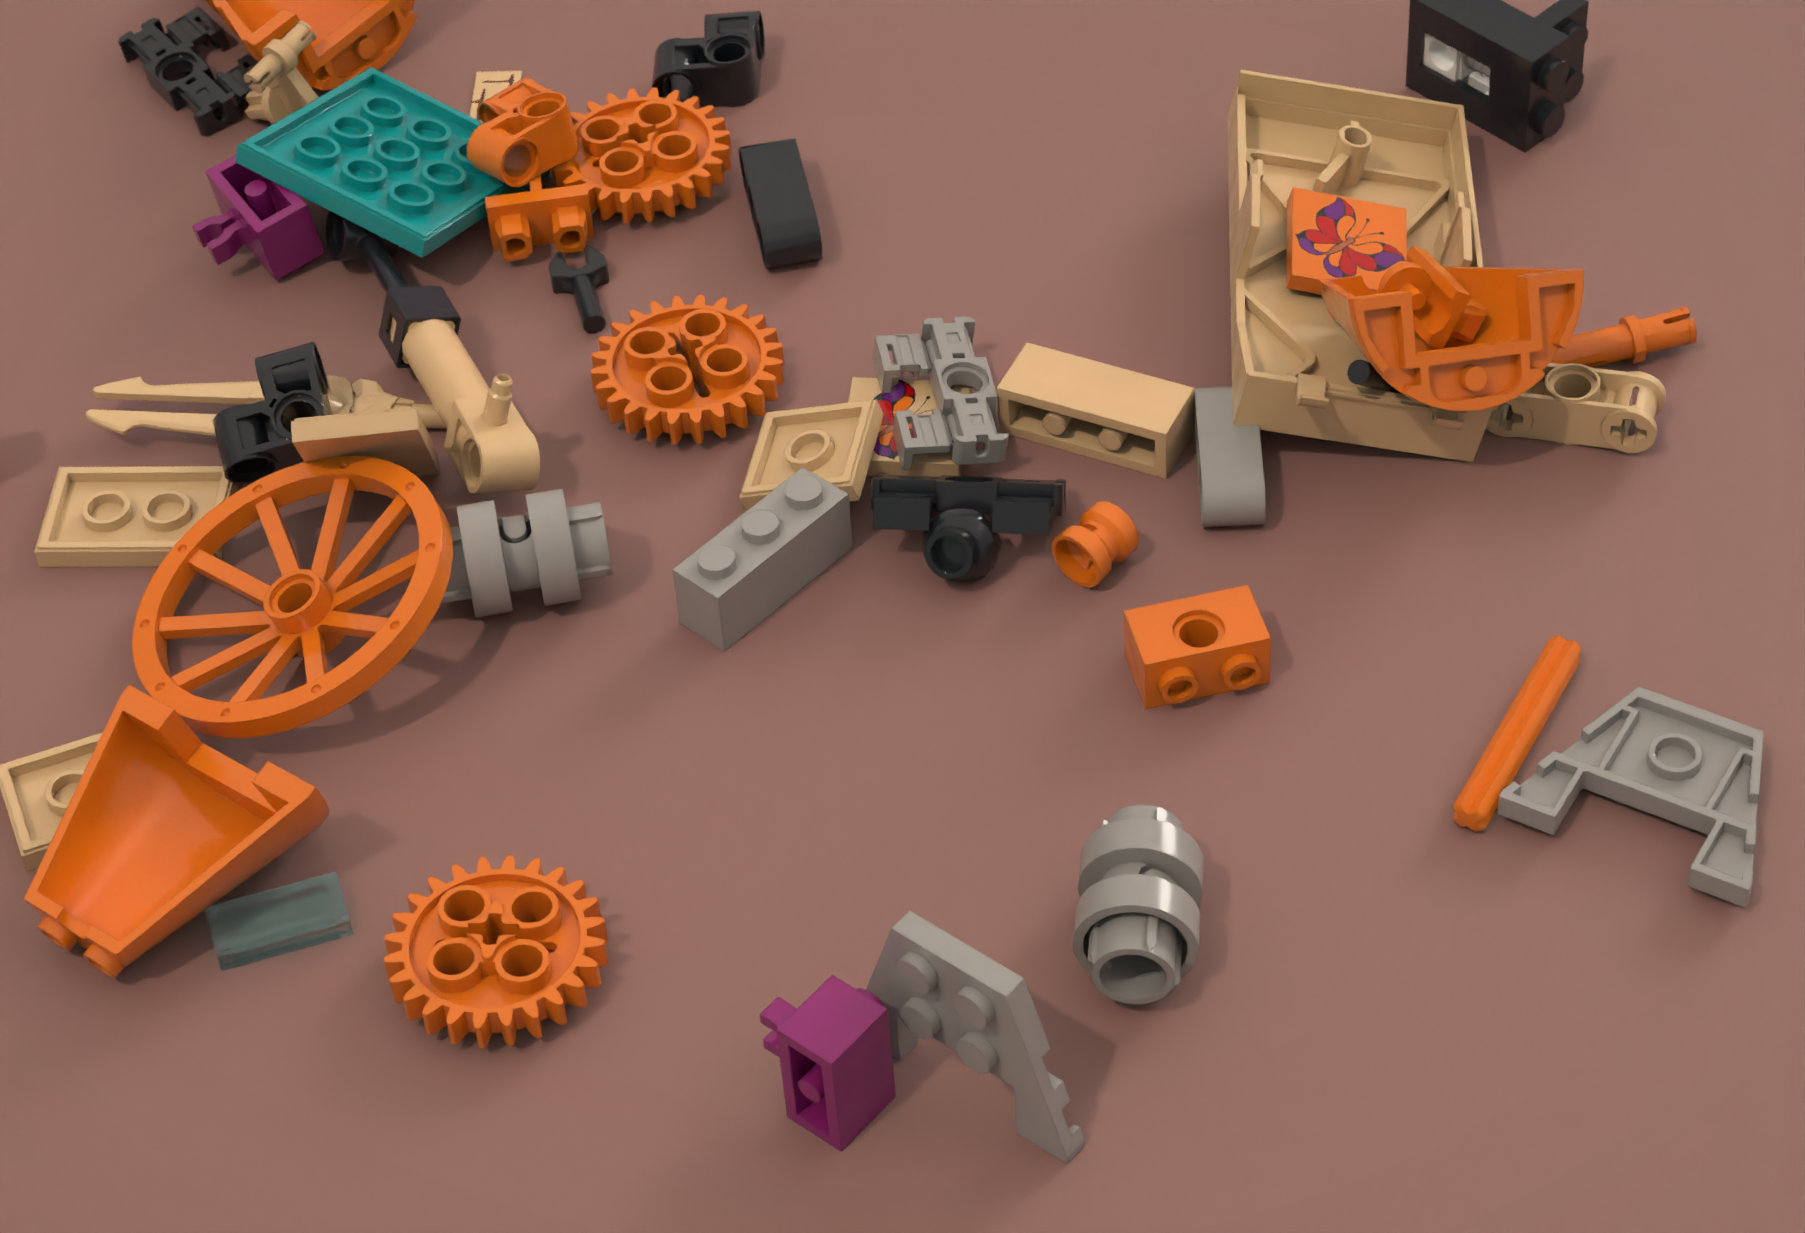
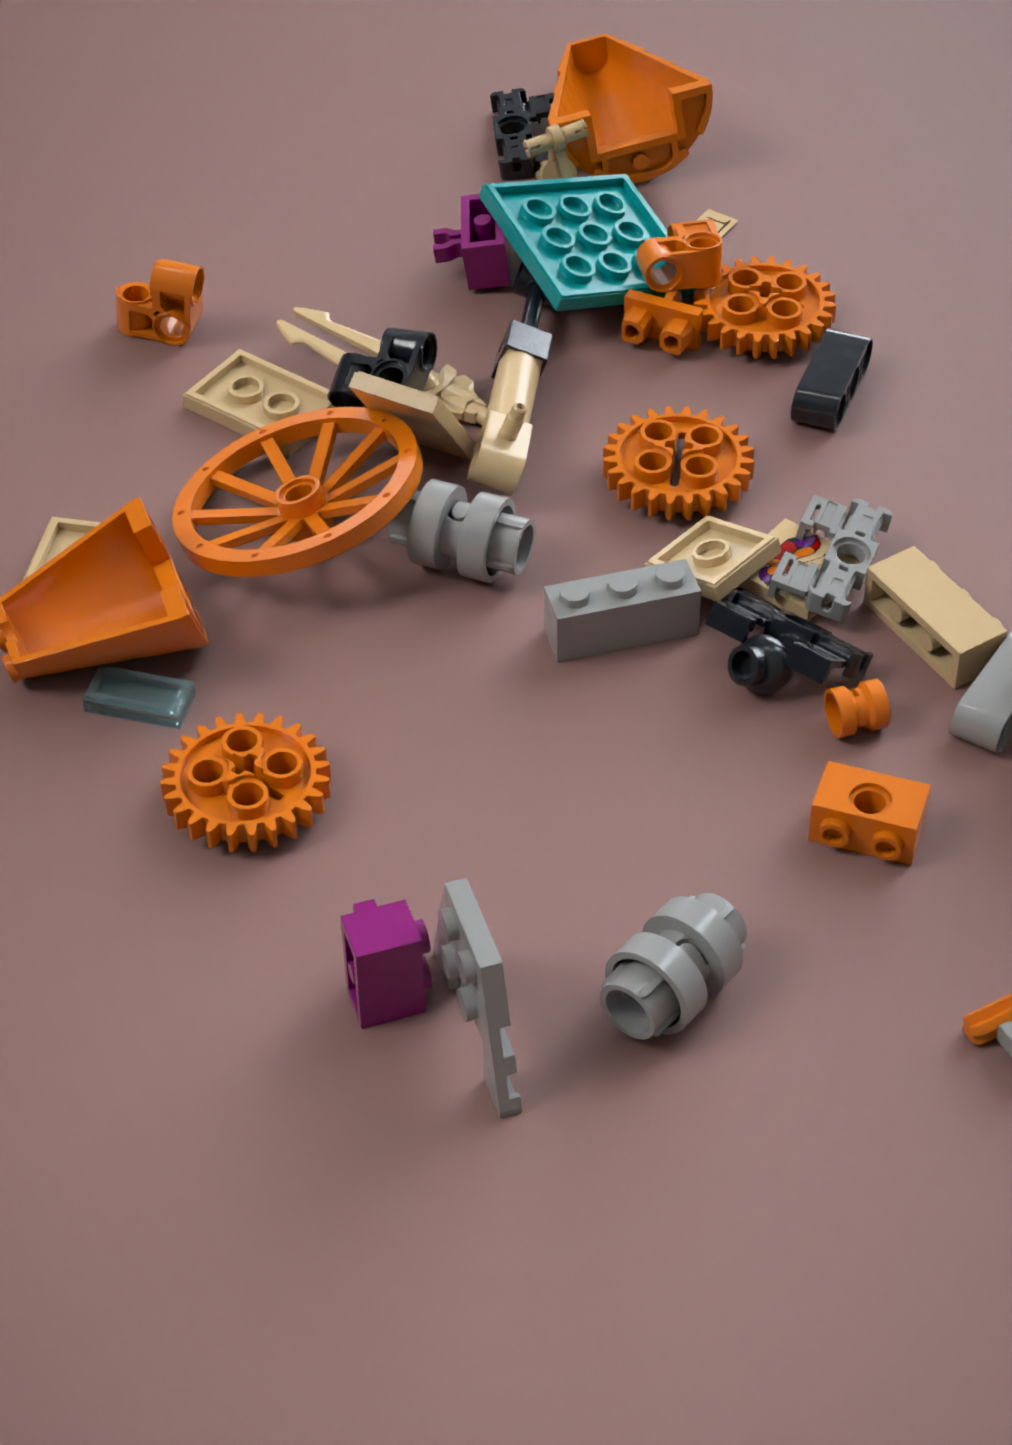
camera: 30 degrees right, 0 degrees up
(582, 285) = (659, 377): black bar -> none
(717, 67) = (866, 270): black piece -> none

